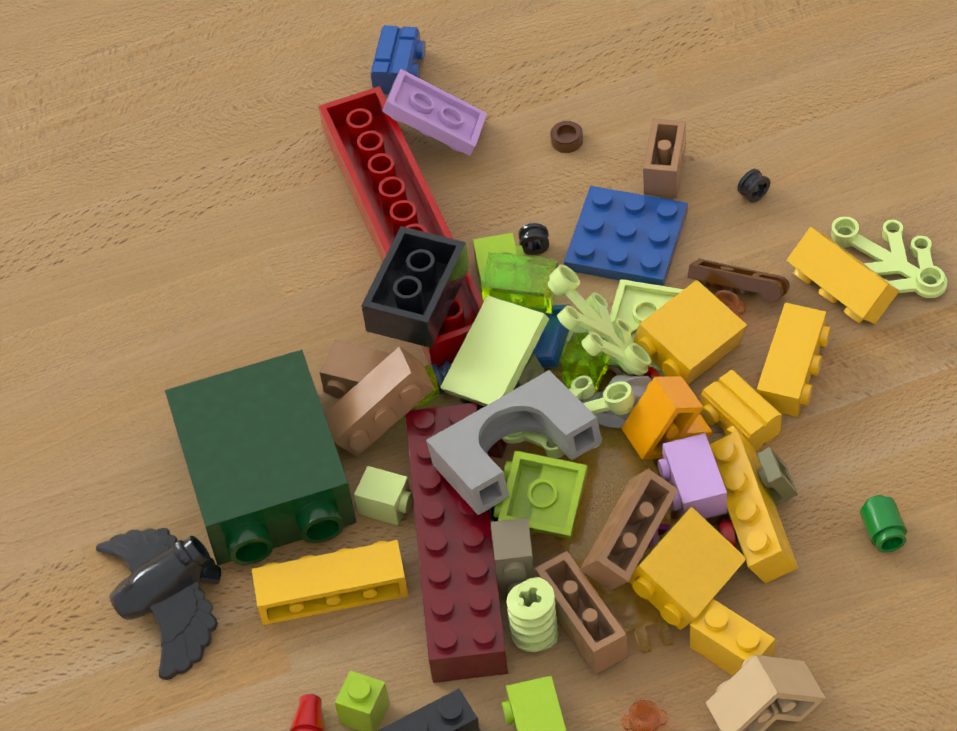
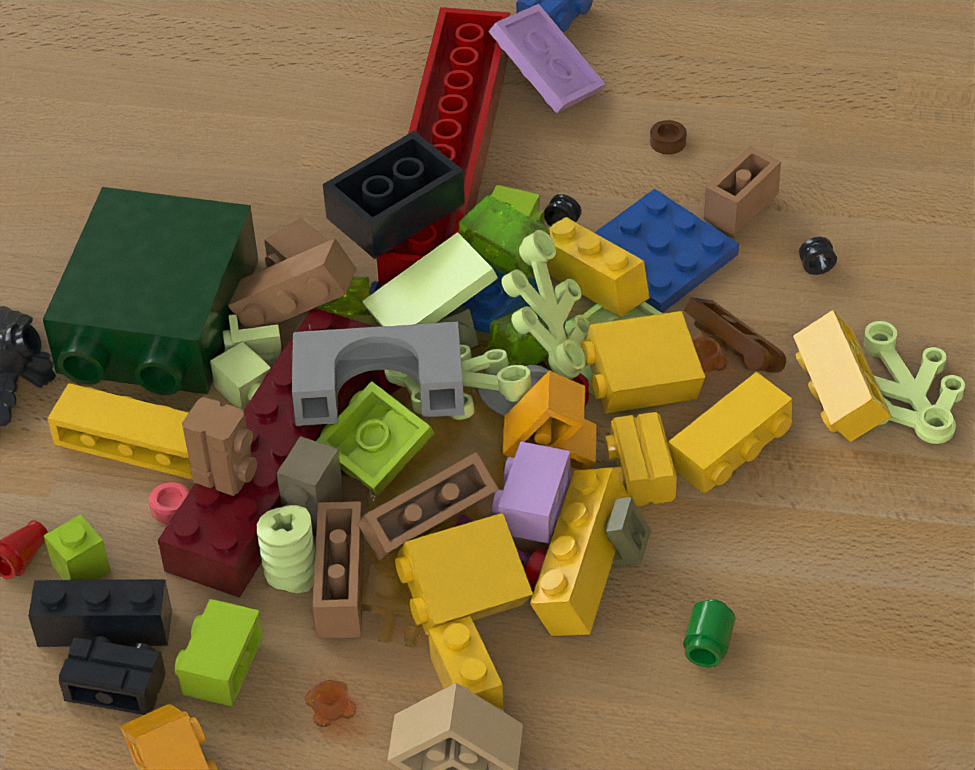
camera: 25 degrees right, 5 degrees down
(378, 456) = (262, 340): none -> yellowish green bracket
(398, 625) = (166, 500): none -> coral tile
(441, 561) = (219, 446): none -> medium nougat brick
(612, 273) = (598, 266): none -> yellow brick

